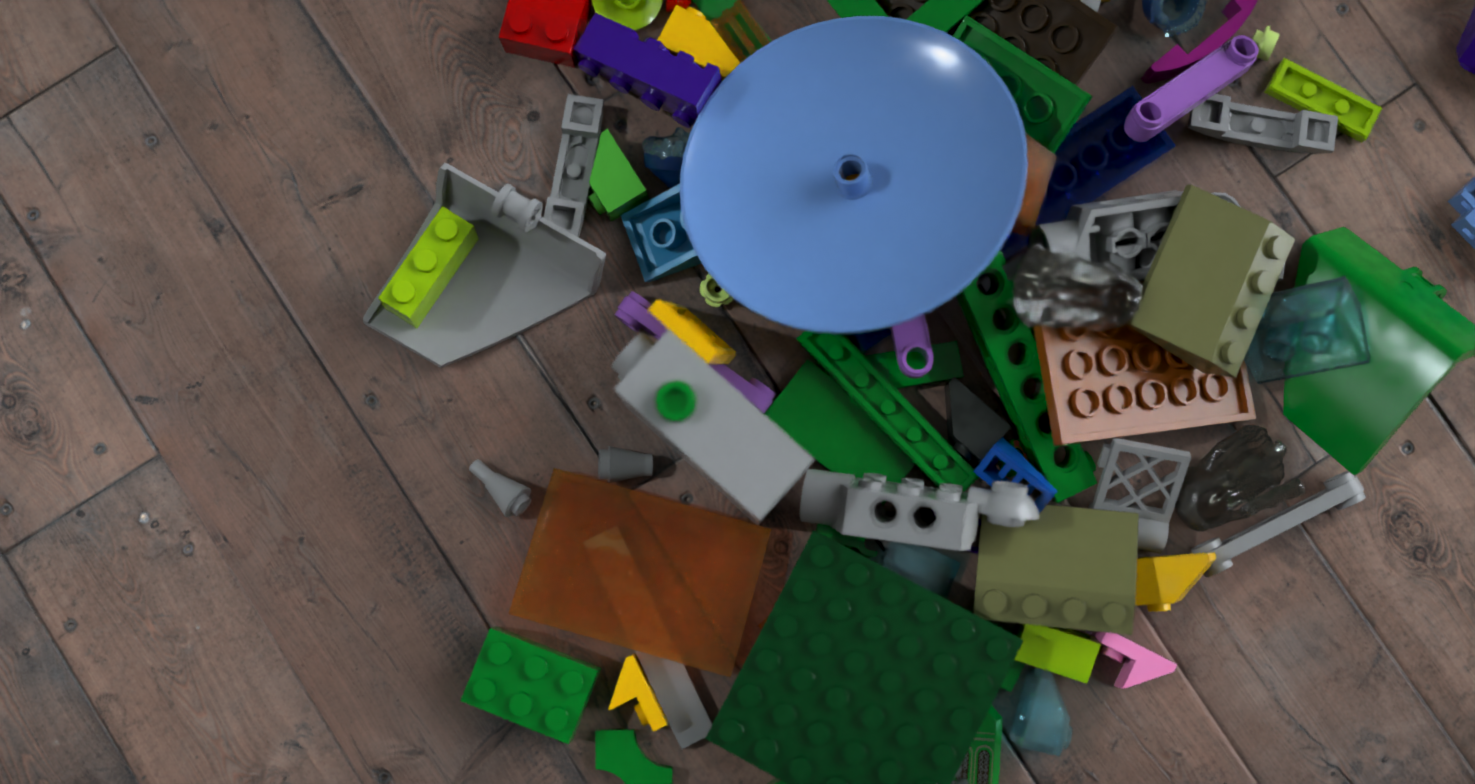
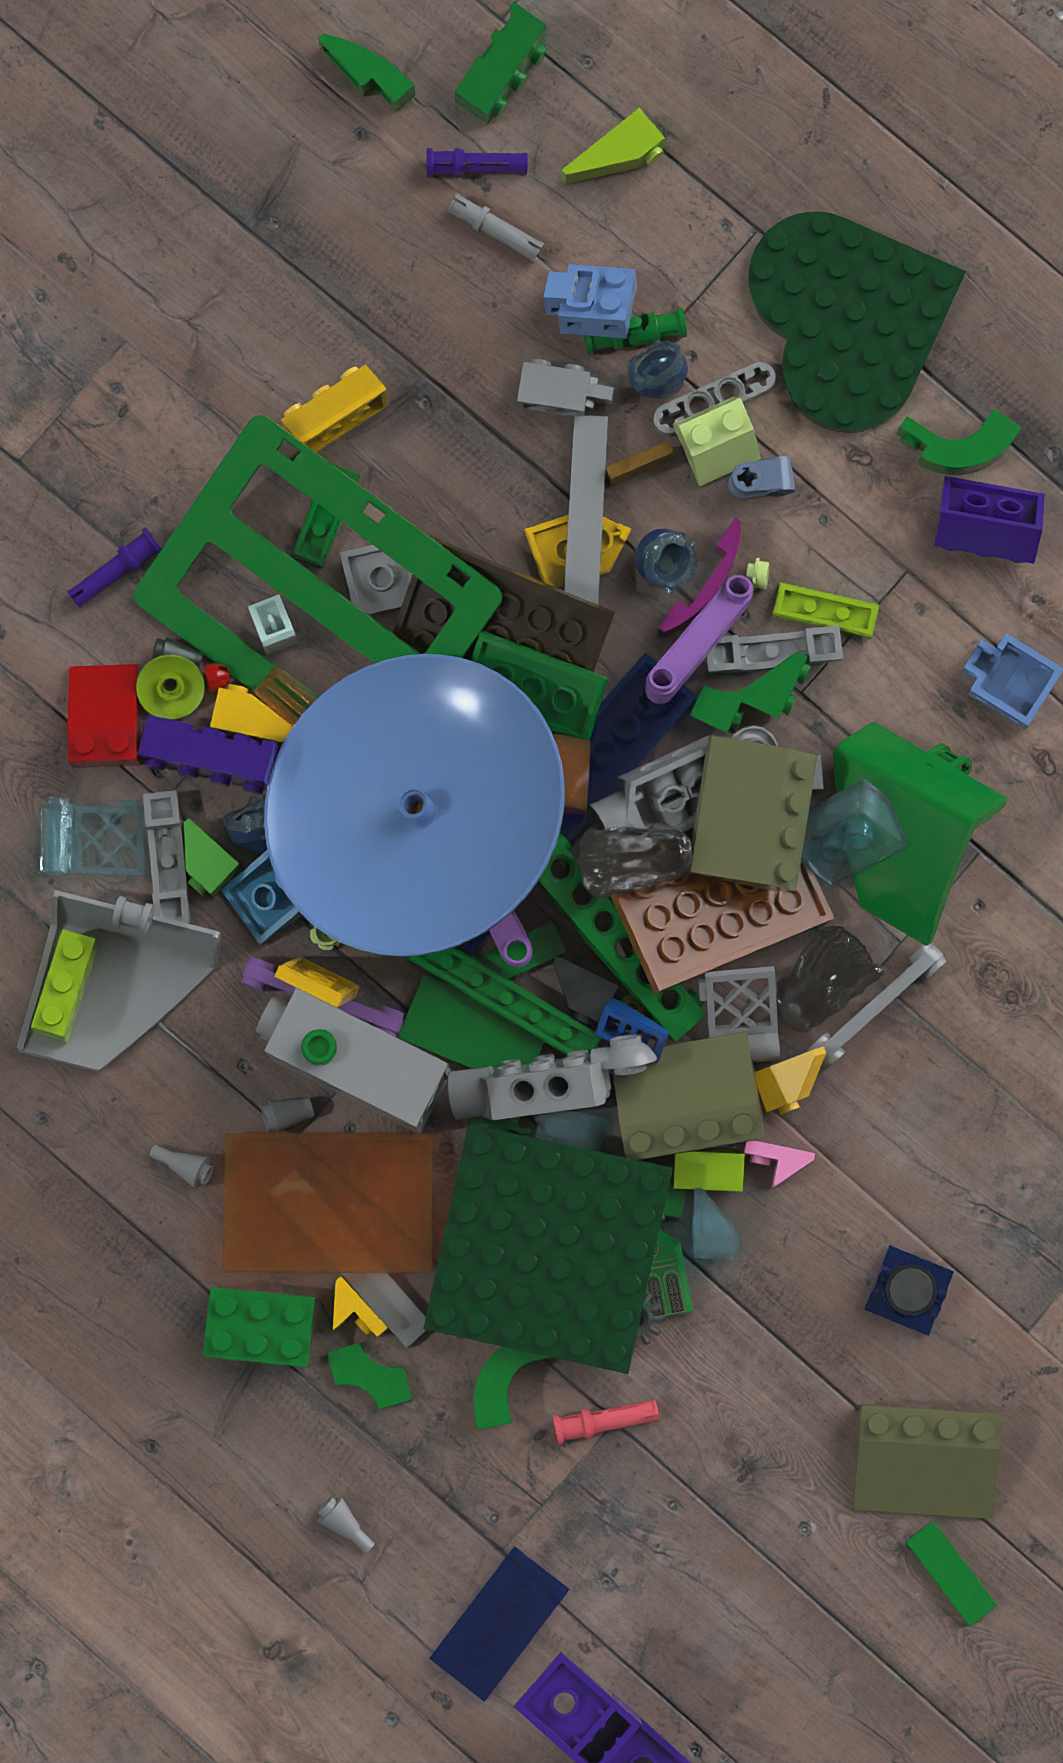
camera: 15 degrees left, 0 degrees up
(473, 118) = (62, 838): none -> clear light blue piece
(1244, 168) = (768, 694): none -> green arch

